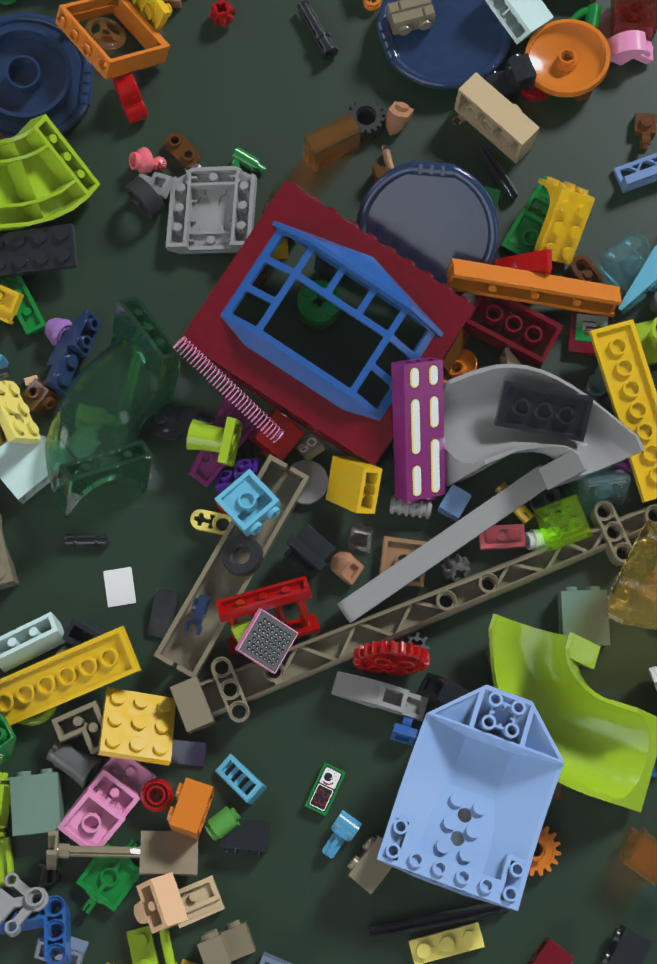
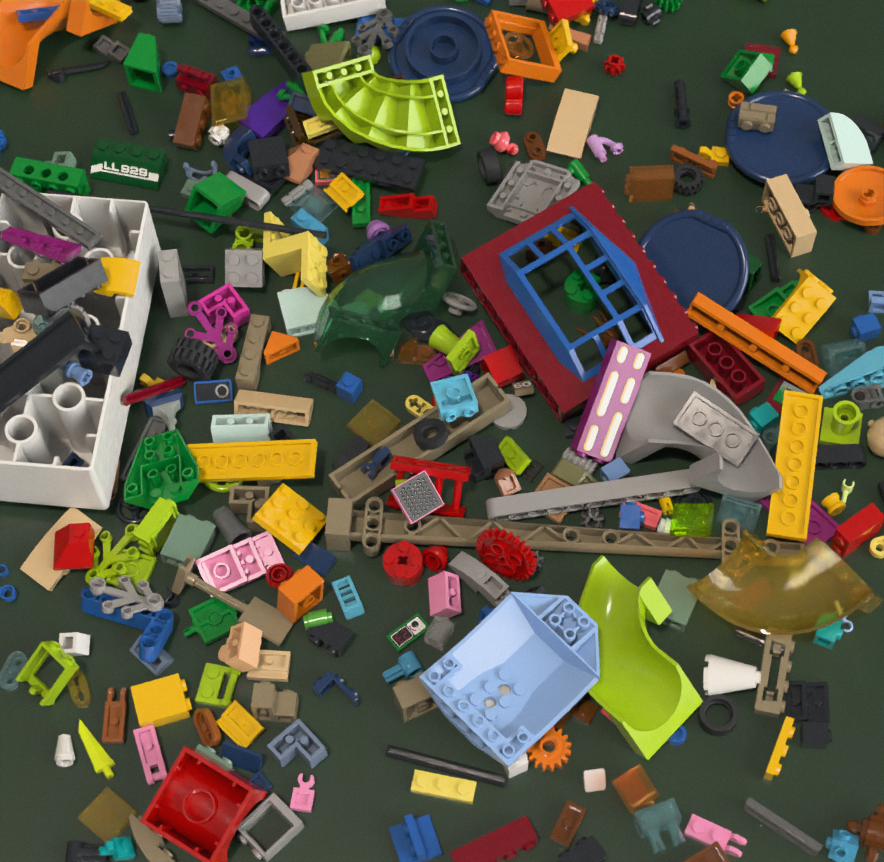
camera: 30 degrees right, 15 degrees down
(18, 521) = (279, 346): none -> orange slope
(47, 596) = (281, 407): none -> tan brick
(78, 285) = (408, 206): none -> red slope
(119, 587) = (328, 425): white sticker -> none
(121, 535) = (349, 387): none -> blue brick
(160, 183) = (505, 160): light grey plate -> none
(169, 564) = (374, 423): none -> clear yellow plate
(172, 458) = (415, 353): none -> clear orange slope
(183, 338) = (500, 362): bright pink piece -> none
(191, 381) = (458, 303): none -> light grey piece
(211, 104) = (572, 124): none -> tan slope
(253, 124) = (595, 144): none -> lavender plant
(265, 894) = (324, 684): none -> dark blue bracket
(277, 703) = (394, 560): none -> red brick
(313, 690) = (435, 558): none -> red brick
(339, 533) = (514, 455): none -> lime plate
(345, 731) = (444, 594): none -> bright pink brick
(349, 94) = (681, 155): none -> dark orange plate
(354, 484) = (541, 421): yellow brick -> none
(358, 773) = (439, 632): none -> clear brick
(371, 342) = (607, 335): none -> reddish brown plant
(383, 75) = (716, 153): none -> yellow plate
(397, 117) = (712, 186): nougat plate -> none
(413, 527) = (572, 474): none -> olive slope
(498, 549) = (631, 516): none -> blue brick
(575, 367) = (763, 417): none -> teal brick
(593, 921) = (568, 824): none -> reddish brown plate
(595, 859) = (594, 780): none -> white slope
(630, 214) = (865, 327): none -> blue brick

